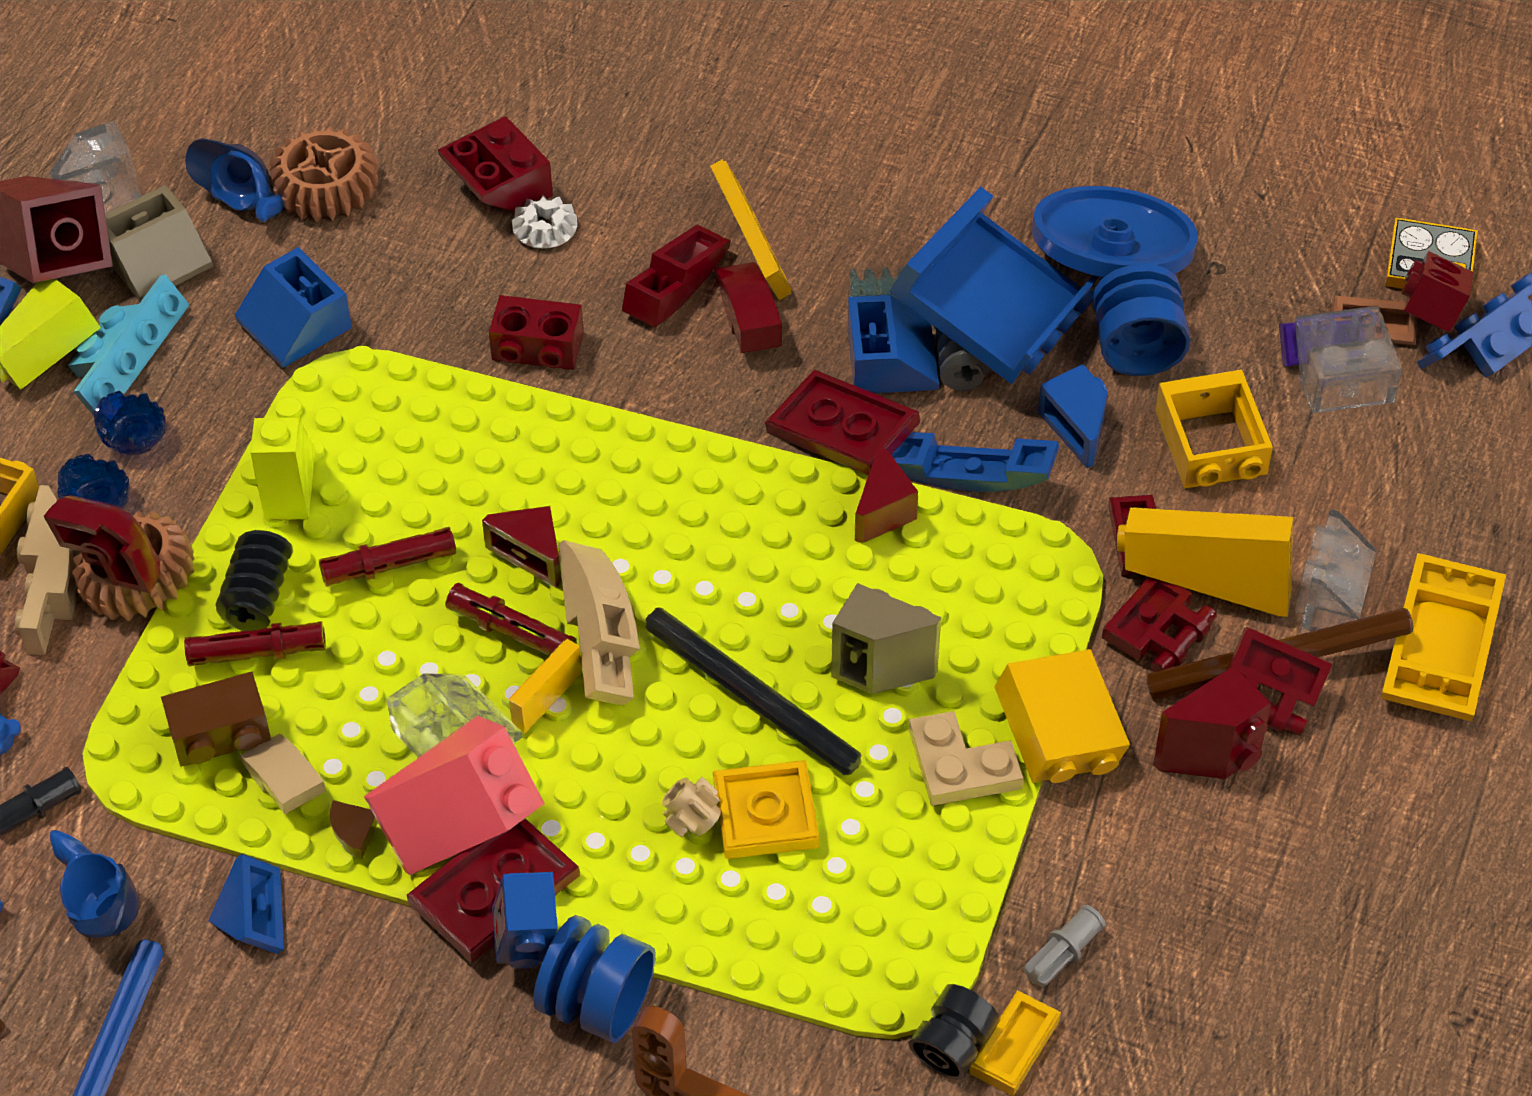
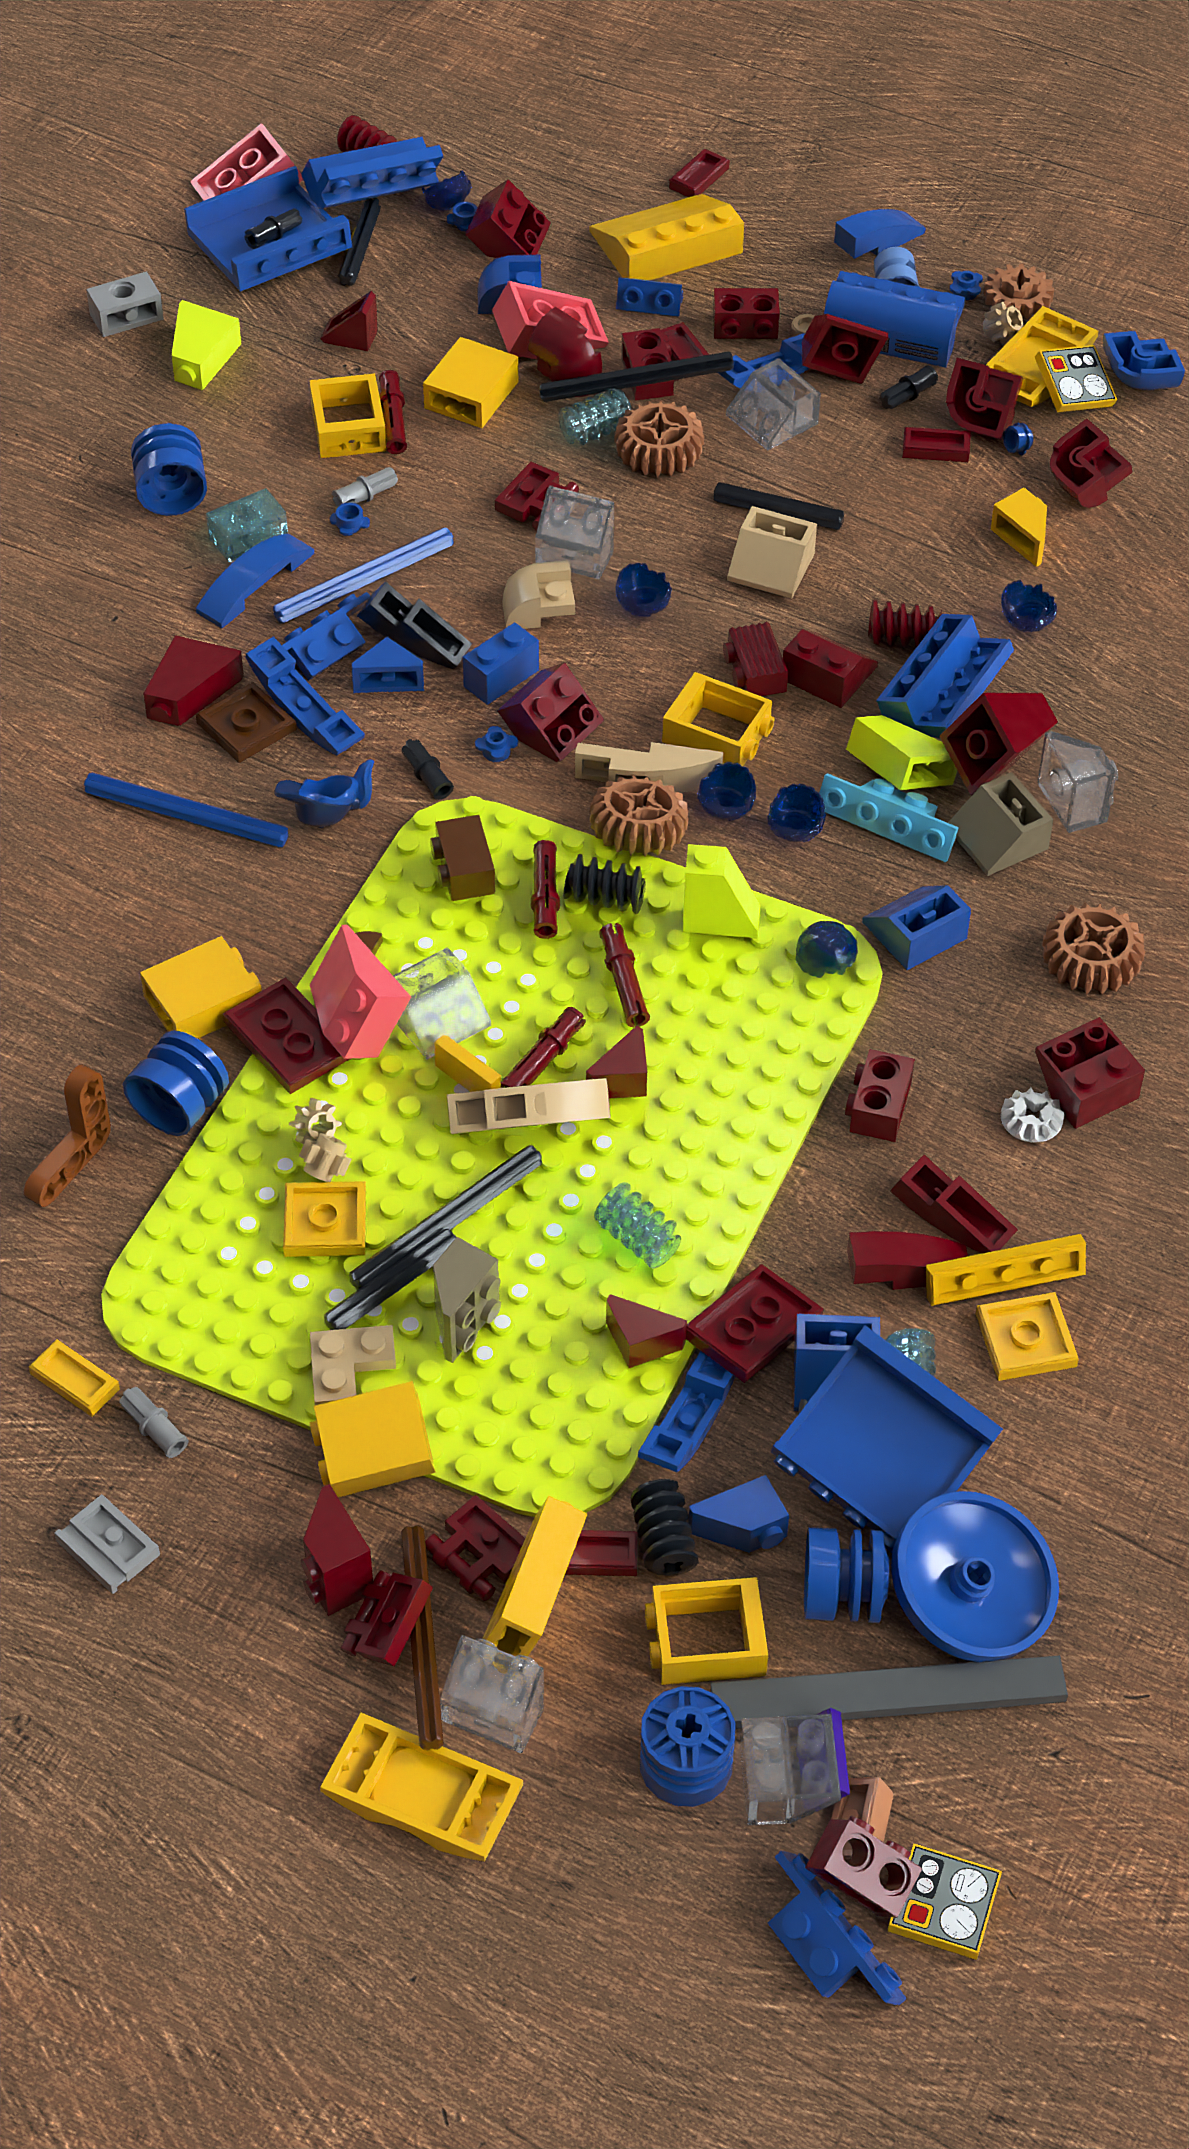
camera: 95 degrees right, 0 degrees up
(107, 539) = (627, 771): dark red brick -> none
(233, 176) = (1090, 883): blue hair -> none
(251, 904) = (304, 896): blue slope -> none
(283, 773) = (414, 901): tan slope -> none
(341, 382) = (826, 949): none -> hair
(425, 993) = (198, 987): none -> yellow brick
(524, 918) = (223, 1025): blue brick -> none
(642, 823) = (311, 1114): none -> tan gear
(747, 510) = (637, 1225): none -> clear light blue piece
(818, 221) = (1026, 1336): none -> yellow tile
(873, 750) = (388, 1282): none -> black axle
(951, 1036) = (80, 1322): black wheel -> none
(1111, 466) = (663, 1528): none -> black piece
(1233, 962) = (107, 1543): none -> light grey plate
(1239, 309) = (900, 1690): none -> dark grey tile
(1350, 427) = (687, 1768): none -> blue wheel

